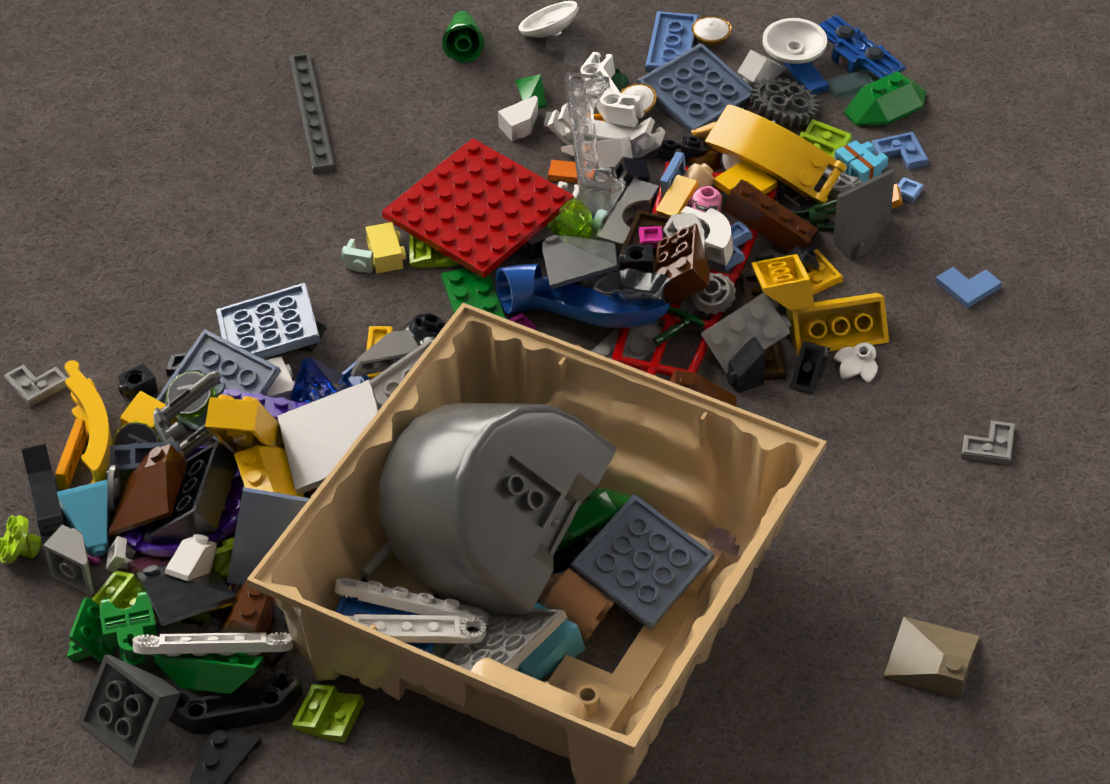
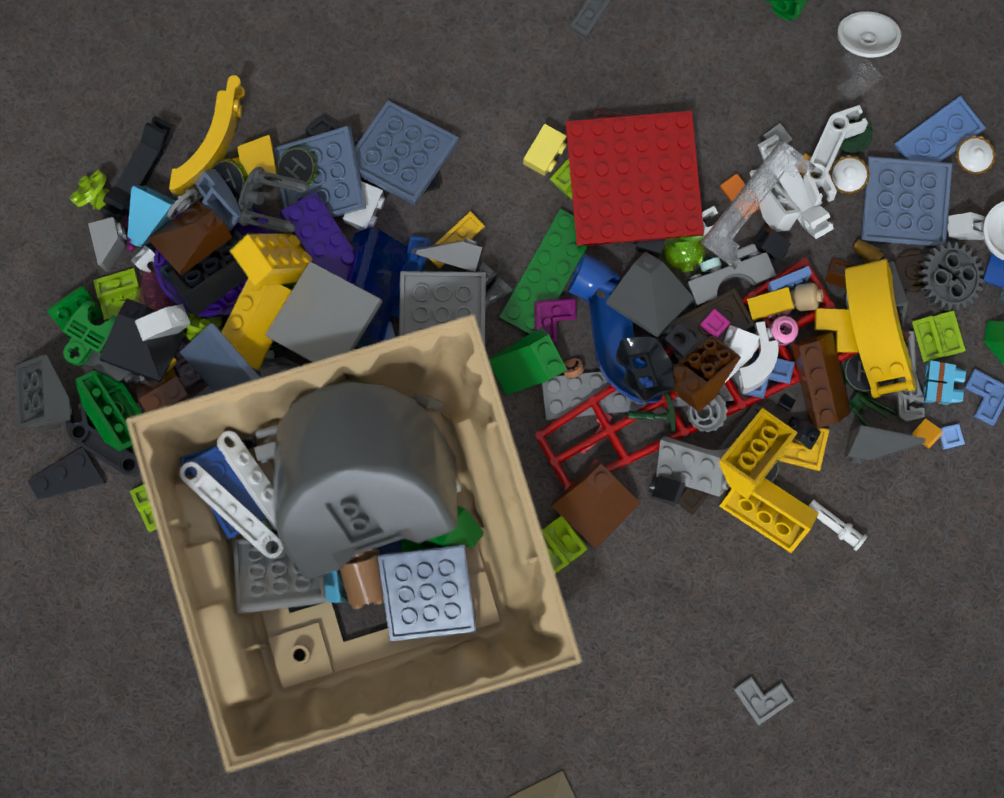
camera: 40 degrees right, 35 degrees up
(32, 388) = (215, 58): light grey tile -> none
(71, 454) = (185, 146): light orange tile -> none
(137, 380) = (285, 128): black brick -> none
(205, 643) = (101, 391): white plate -> none
(357, 259) = (516, 146): light aqua bracket -> none
(391, 573) = (265, 452): none -> light grey piece
(425, 326) = (501, 253): black piece -> none
(519, 118) = (752, 113): white slope -> none
(531, 87) = (790, 91): green slope -> none
(690, 146) = (838, 253): black slope -> none
(721, 540) = (494, 621): slope -> none
(809, 366) = (713, 526): black slope -> none
(855, 363) = (747, 550): white plate -> none
(909, 295) = (844, 531): none -> white pin
(968, 290) = (889, 561): medium blue tile -> none

